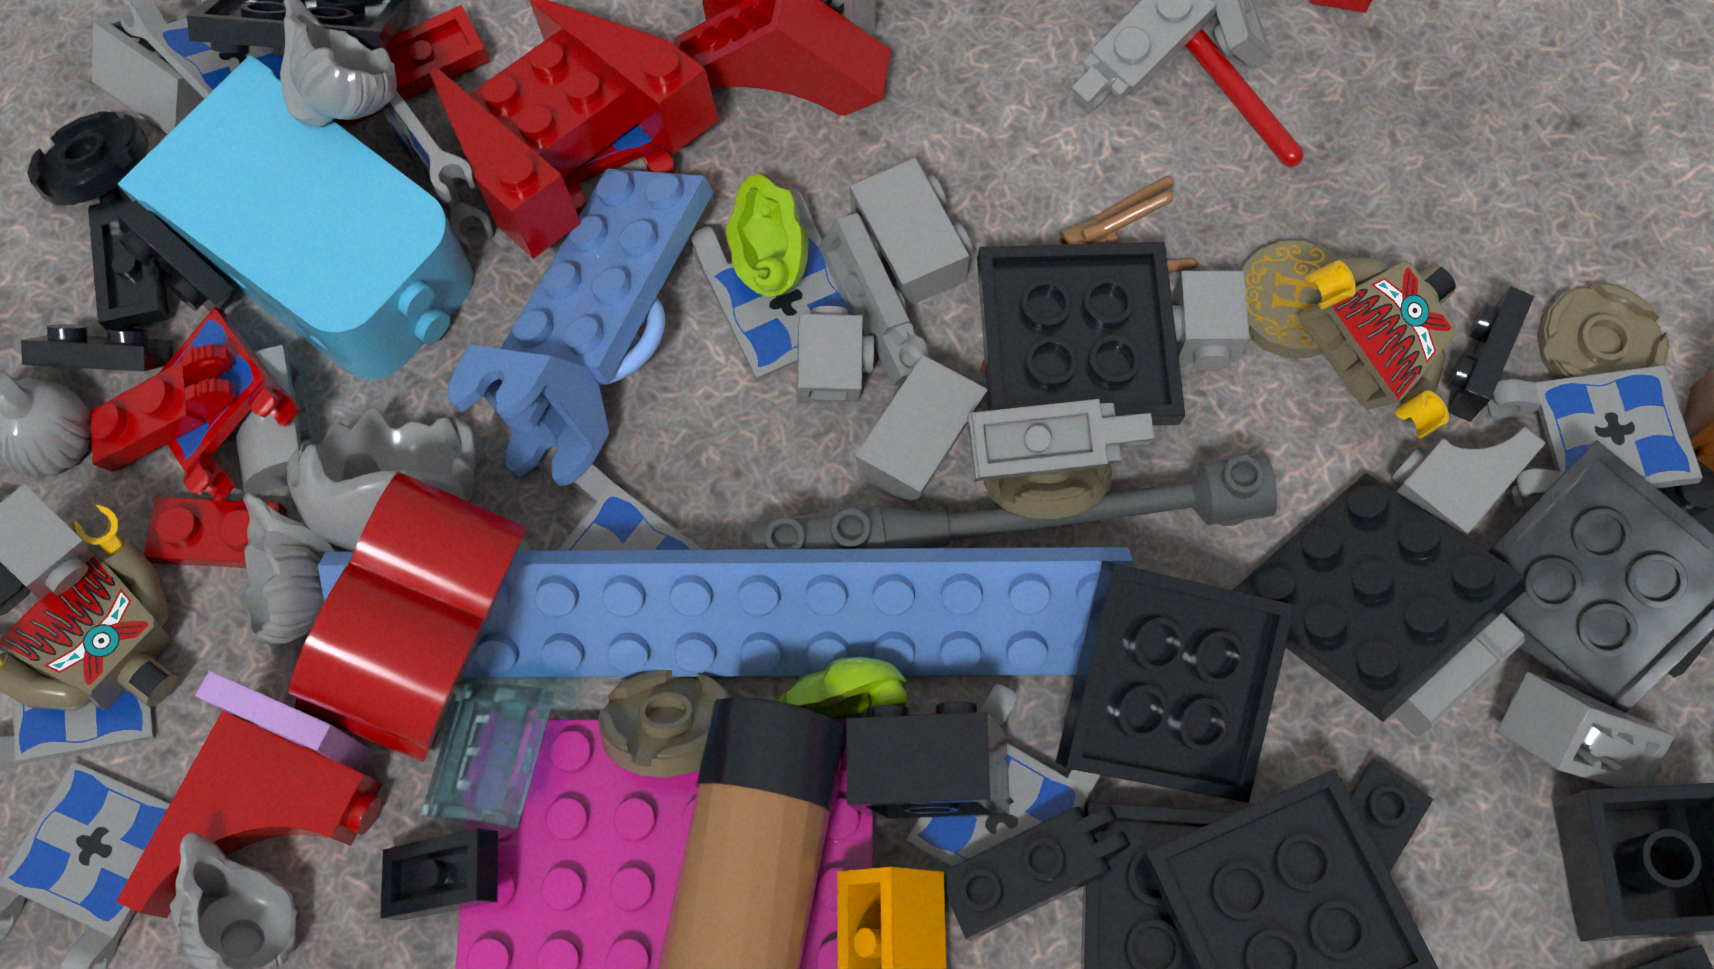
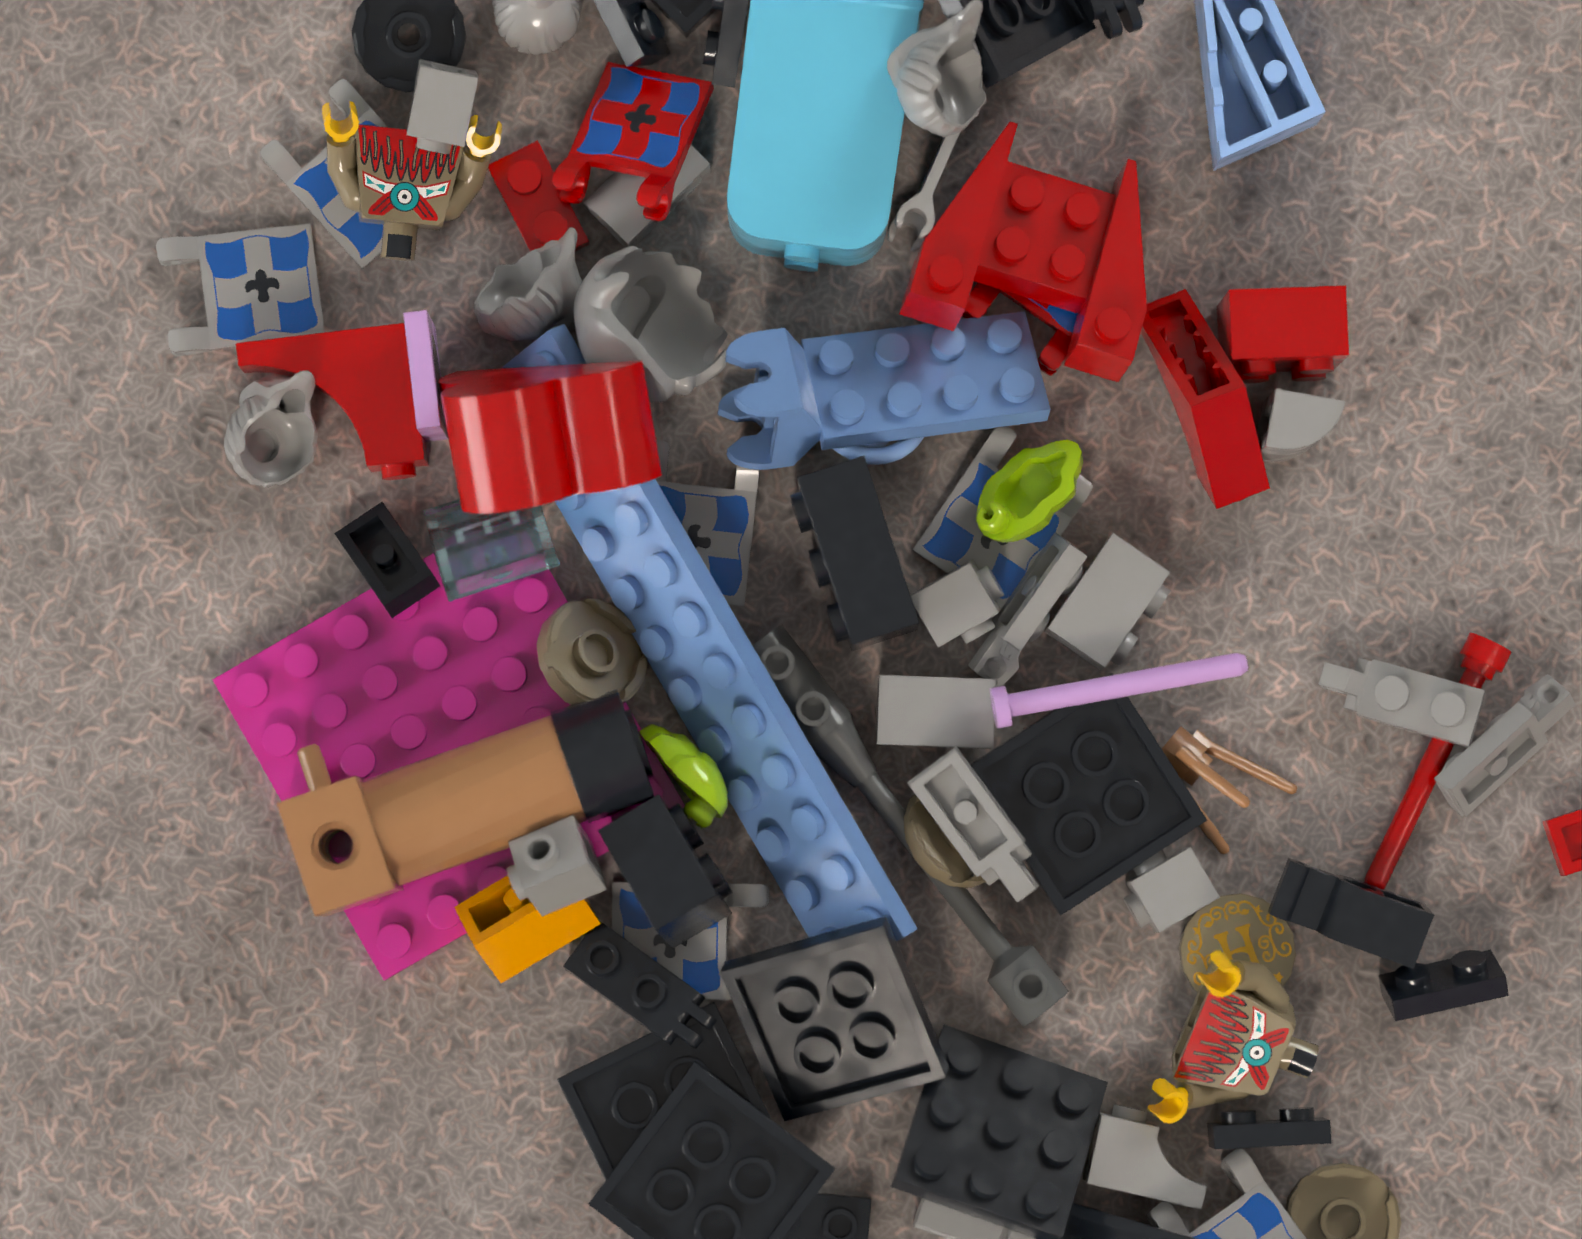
camera: 50 degrees right, 15 degrees up
(161, 408) = (603, 98): red hinge -> none
(441, 42) = (1050, 95): red hinge -> none
(726, 411) = (854, 554): none -> black brick
(858, 873) = (555, 866): none -> light grey brick
(955, 350) = (1114, 686): none -> lavender bar
(1316, 175) = (1352, 912): none -> black piece
(1421, 141) = (1443, 985): none -> black plate

